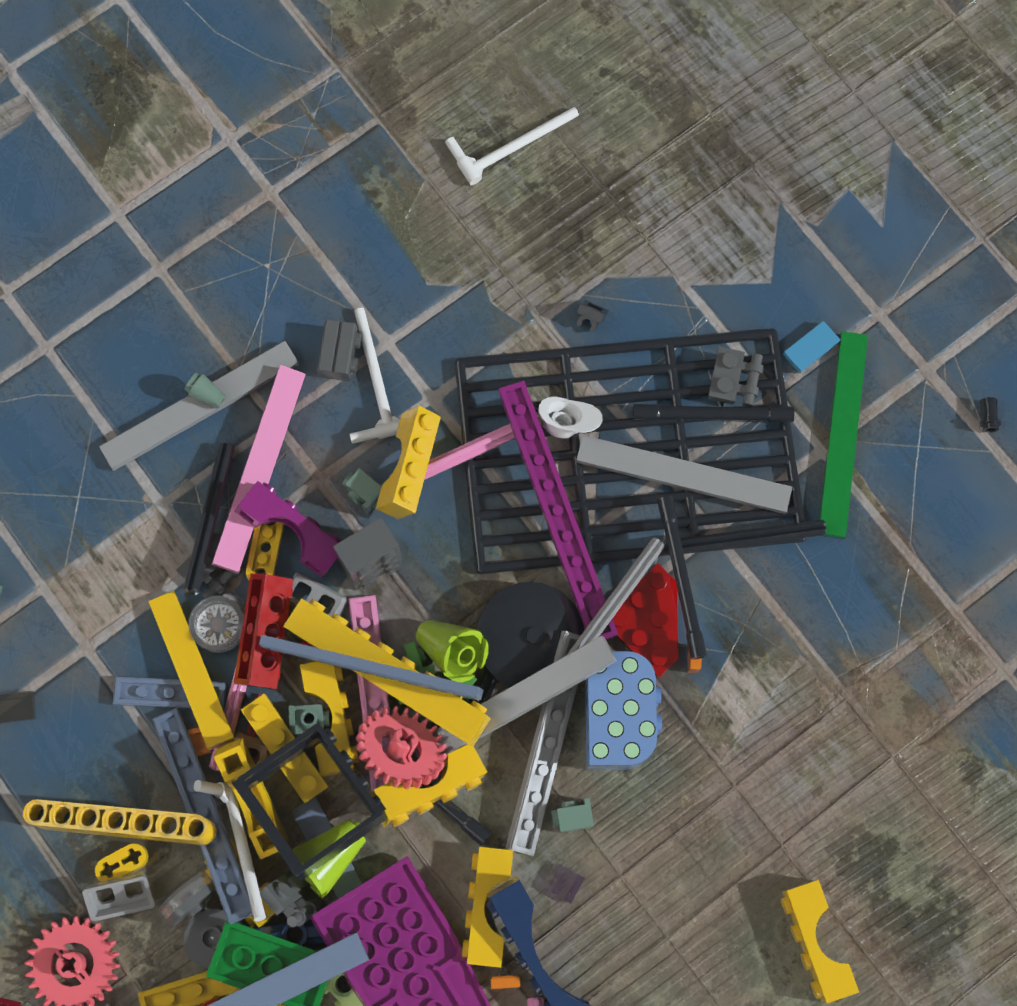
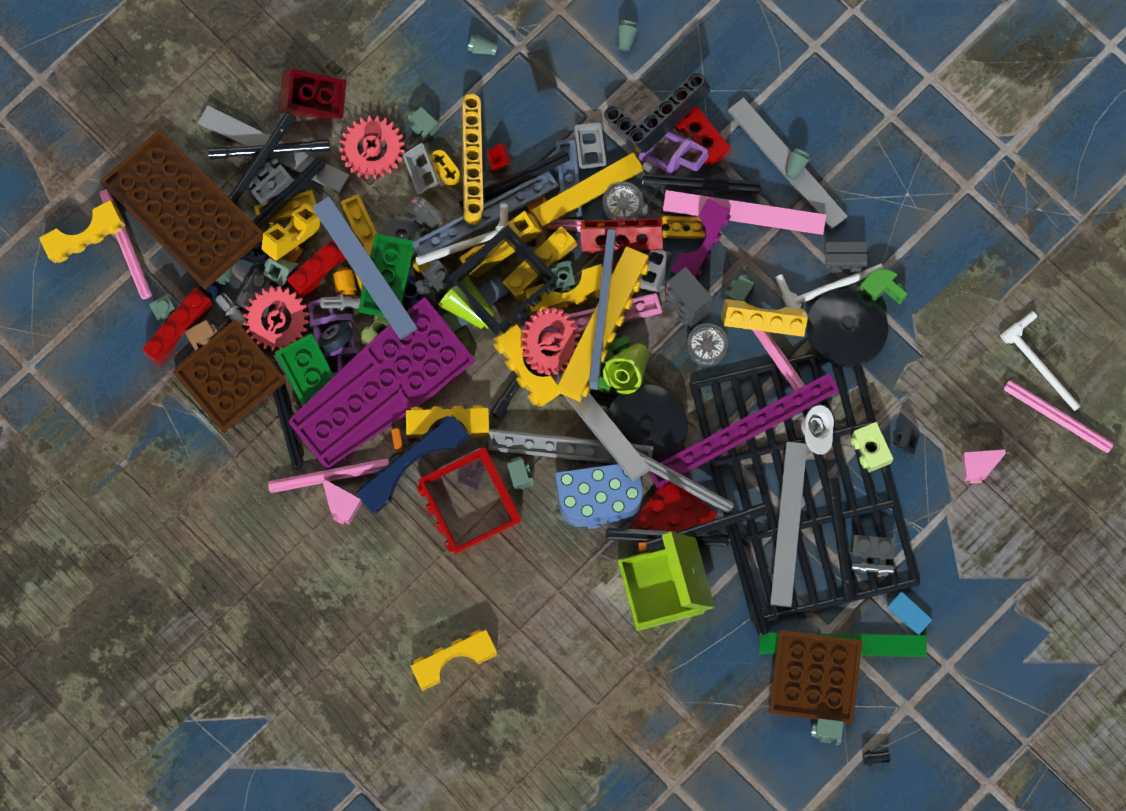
camera: 85 degrees right, 0 degrees up
(52, 886) = (423, 123): none -> sand green brick
(89, 526) = (719, 148): none -> red brick
(107, 557) = (662, 118): none -> black beam
(121, 785) = (498, 157): none -> red plate
(131, 648) = (597, 147): none -> light grey piece
(151, 527) = (678, 157): none -> medium lavender bar
(155, 756) = (523, 176): none -> black axle
(381, 311) = (881, 282): none -> bright green brick
(431, 541) = (707, 344): none -> clear piece
(434, 363) = (847, 328): none -> black dish
(582, 134) = (1058, 416): none -> bright pink axle
(609, 345) = (871, 435): none -> yellowish green brick
(633, 933) = (433, 509): none -> red window
(634, 232) = (980, 464): none -> bright pink slope
(680, 649) = (635, 535): none -> black axle
(751, 640) = (666, 583): none -> lime container
(884, 471) = (815, 676): none -> reddish brown plate
(953, 466) = (827, 731): none -> sand green brick

